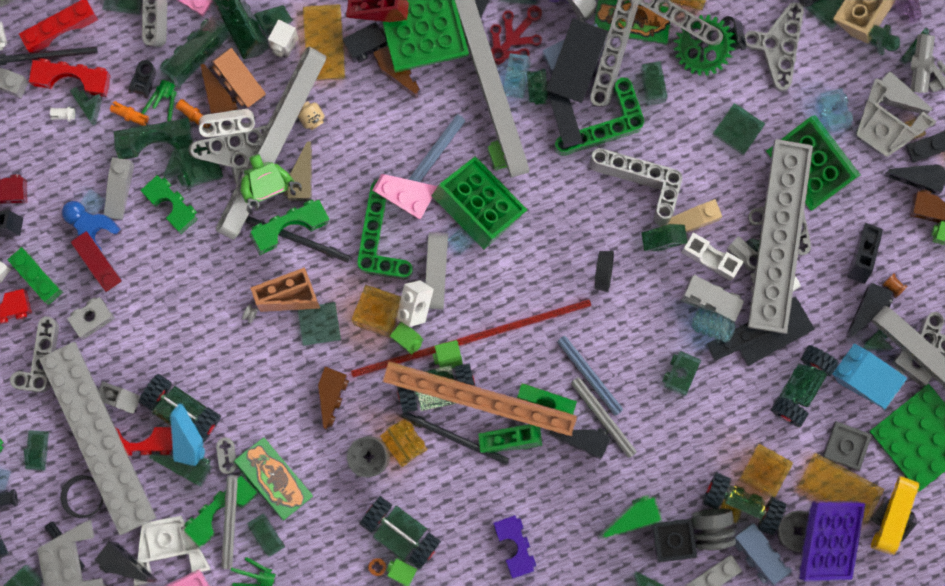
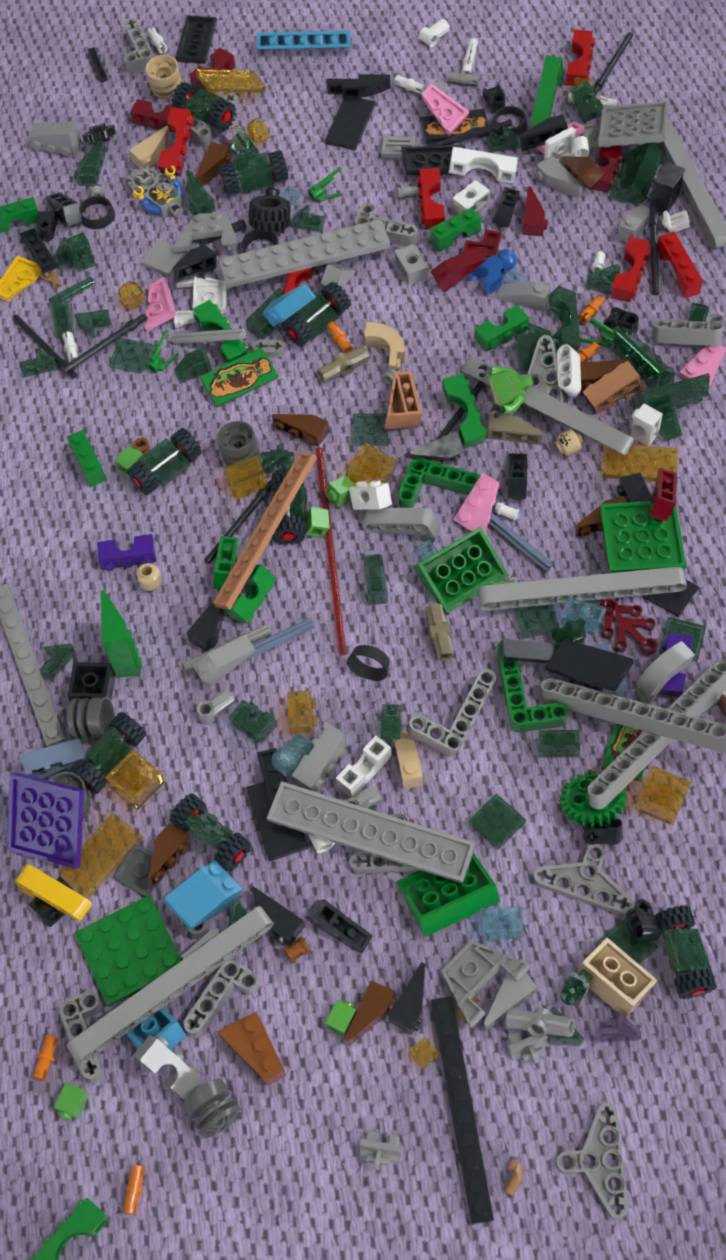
camera: 110 degrees right, 20 degrees down
(52, 492) = (269, 213): none -> black tyre
(57, 237) = (489, 246): none -> dark red plate
(201, 322) = (387, 338): none -> tan arch
(203, 379) = (339, 337): none -> orange pin
(239, 368) = (343, 364): none -> dark tan piece
(341, 243) = (440, 449): none -> slope
(358, 161) = (517, 476): none -> black slope
(378, 421) = (277, 458): none -> clear green hips
(402, 167) = (506, 511): none -> white pin
(501, 285) = (375, 579): none -> slope
(525, 120) = (536, 620): none -> tile
(538, 508) = (148, 577): none -> tan head
(552, 212) = (439, 631): none -> dark tan piece
(624, 413) = (223, 660): none -> light grey slope
(654, 335) = (298, 702): none -> clear yellow brick
(670, 412) = (215, 706): none -> light grey piece
(827, 423) = (168, 848): none -> reddish brown slope

